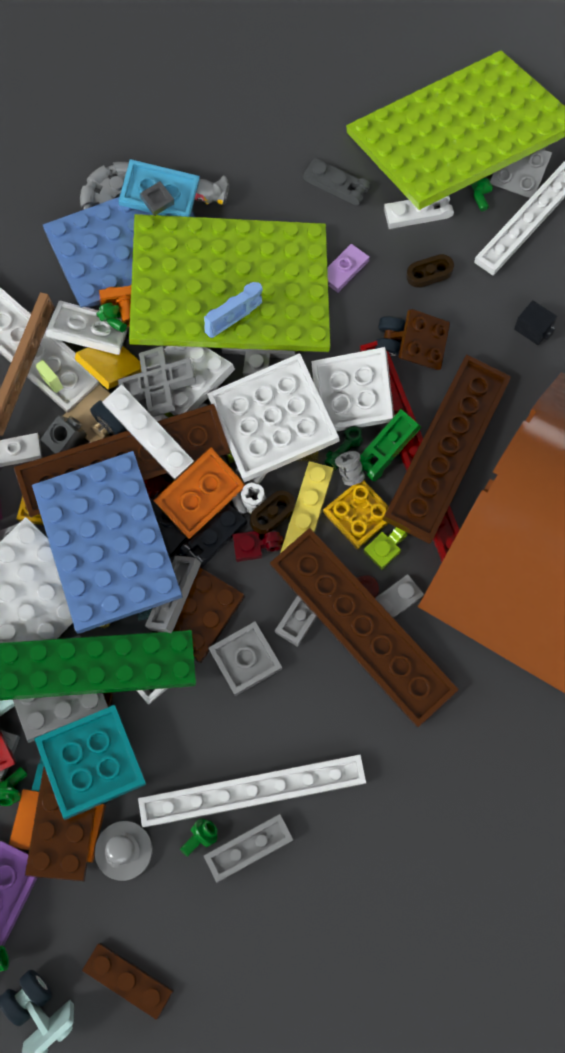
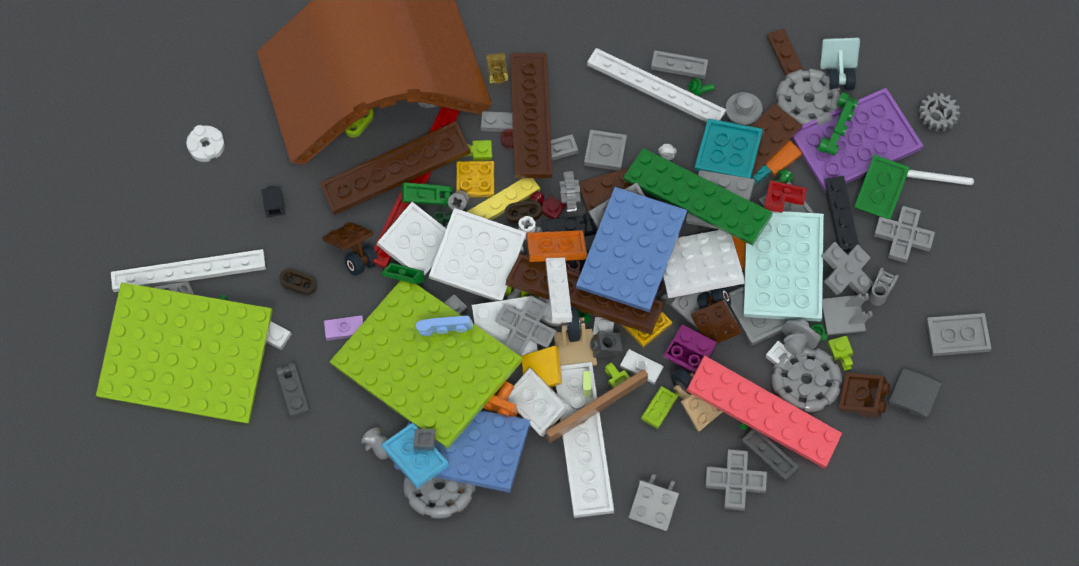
camera: 145 degrees left, 5 degrees down
(26, 415) = (616, 377): none -> lime plate
(70, 926) = (809, 88): none -> light grey plate
(111, 313) = (517, 397): green plate -> none
(173, 714) = (667, 151): none -> white plate
(236, 564) = (569, 191): none -> light grey gear
(331, 344) = (404, 273): none -> green slope
(456, 671) = (497, 61): none -> clear yellow brick

